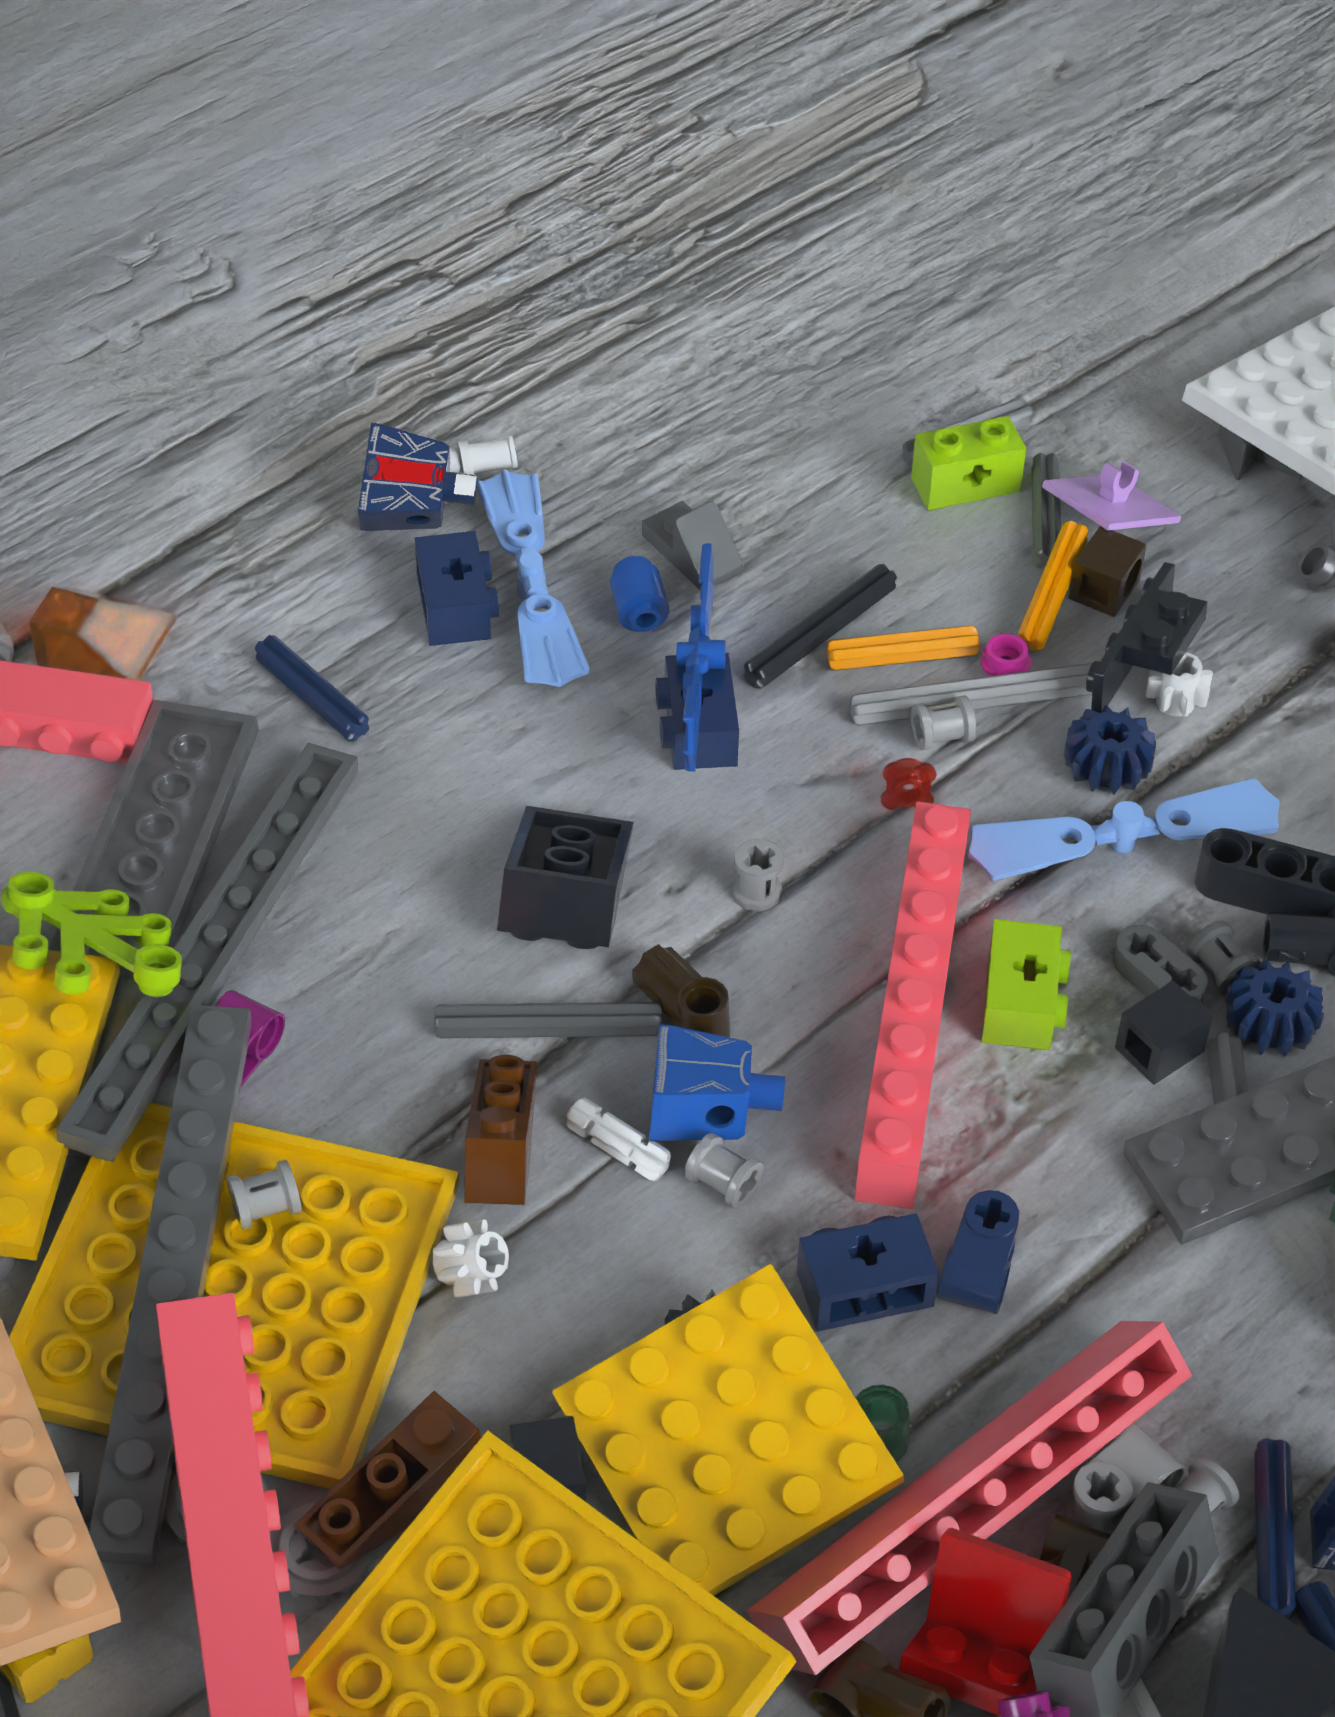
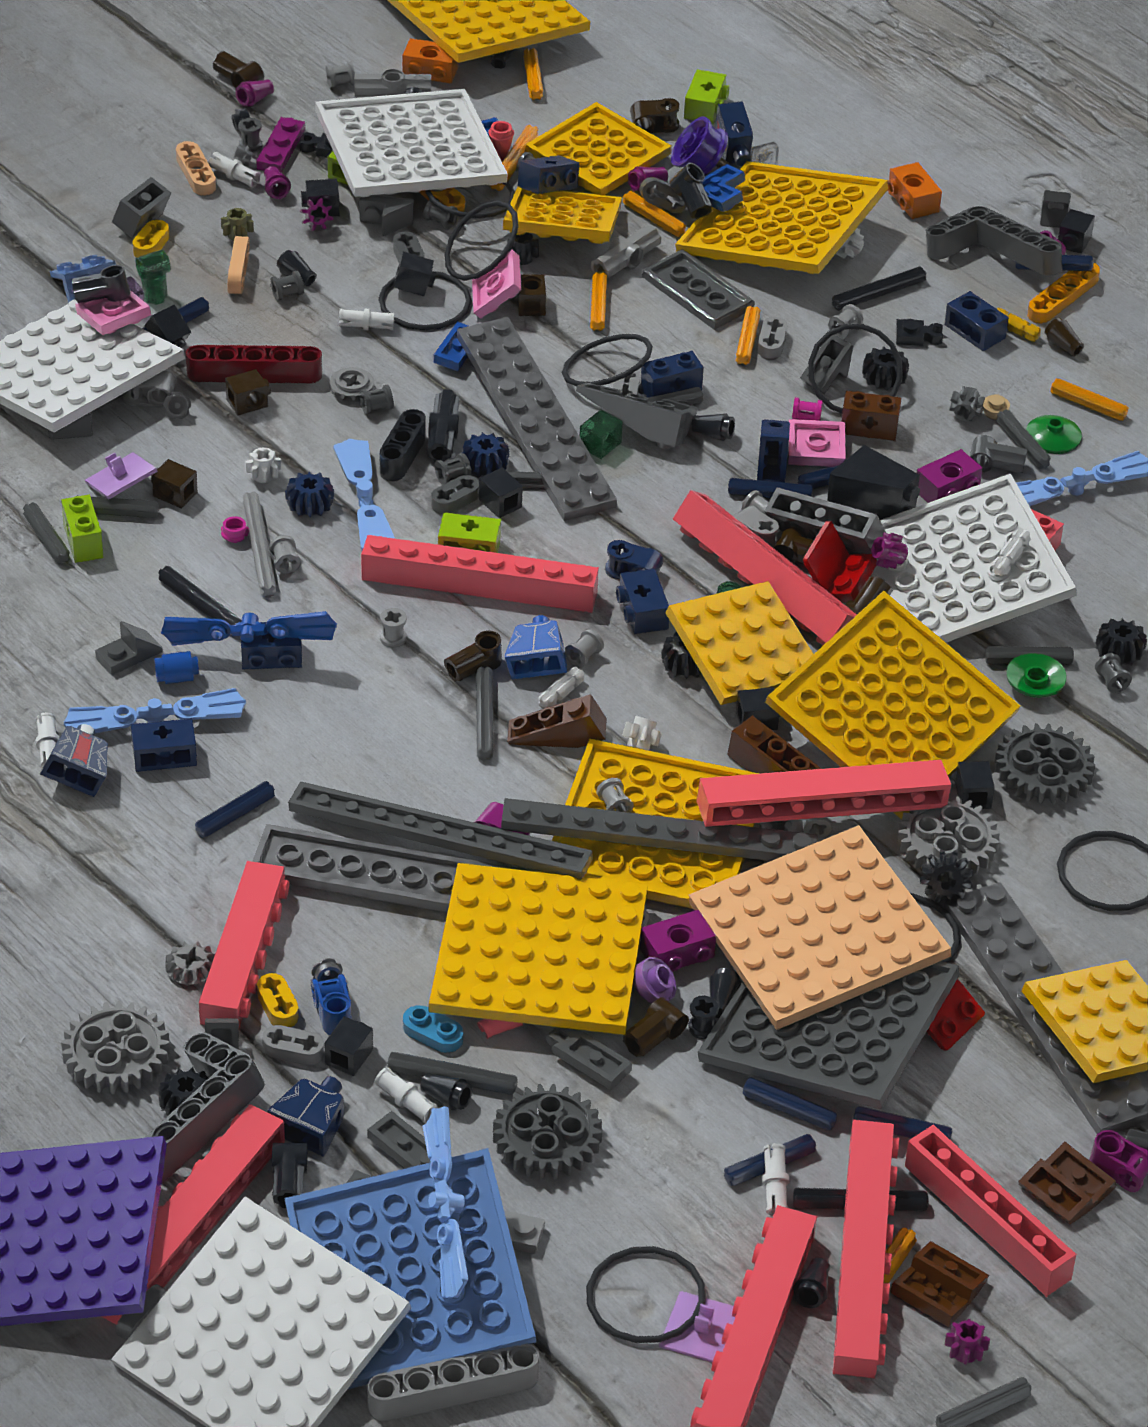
camera: 90 degrees left, 5 degrees down
(32, 897) = (421, 892): lime plant -> none
(97, 633) = (182, 905): clear orange slope -> none
(564, 877) = (390, 699): black slope -> none
(902, 647) = (221, 569): light orange axle -> none
(906, 772) = (329, 570): clear red plate -> none
(1052, 585) = (184, 504): light orange axle -> none
(1151, 637) = (237, 465): black bracket -> none

